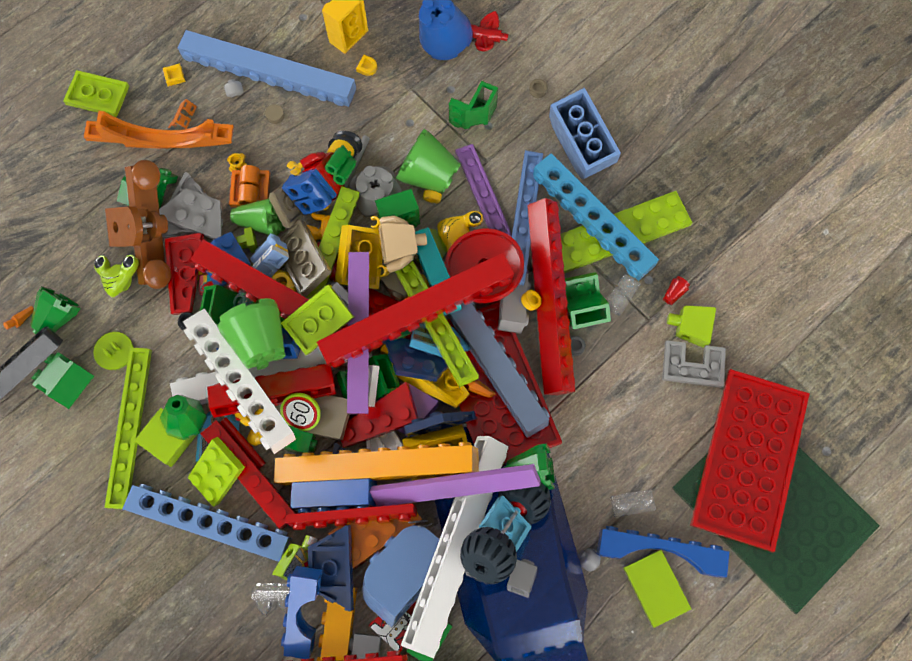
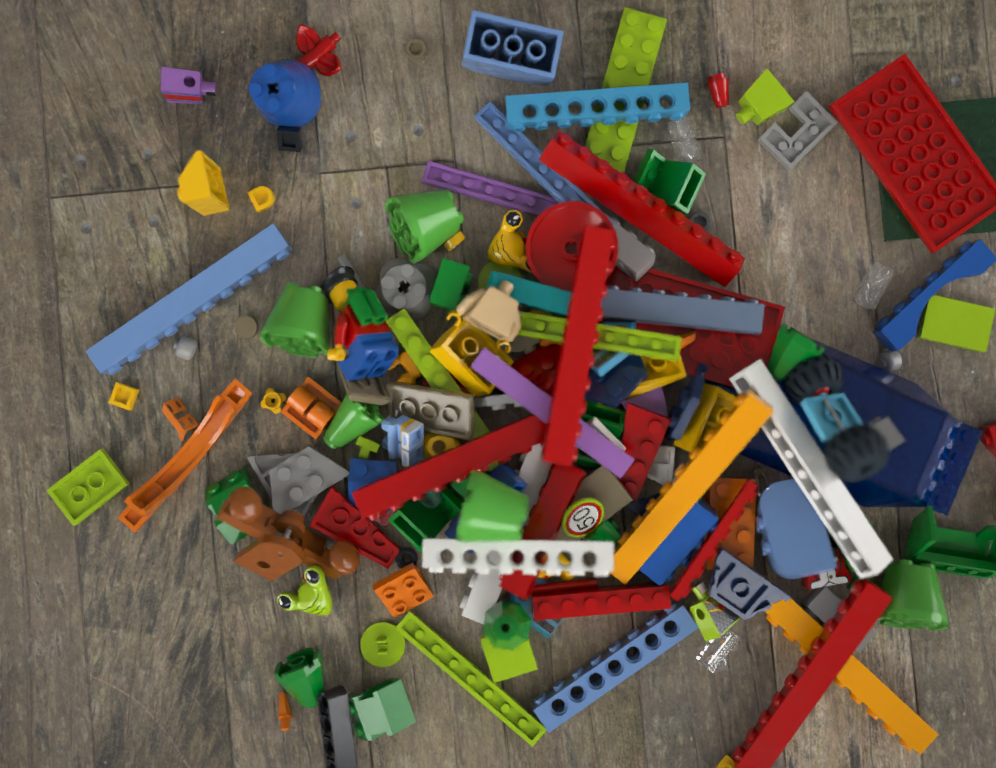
camera: 55 degrees left, 15 degrees up
(162, 333) = (403, 590): none -> orange plate
(215, 471) = (578, 629): lime plate -> none
(299, 135) = (299, 322): none -> bright green cone
(299, 635) = (746, 624): blue arch -> none
(317, 319) = (516, 442): lime plate -> none
(418, 54) = (289, 138): none -> black plate
(456, 485) = (769, 433): medium lavender tile -> none
(469, 115) = (395, 147): green piece -> none
(531, 300) = (635, 231): yellow tile -> none

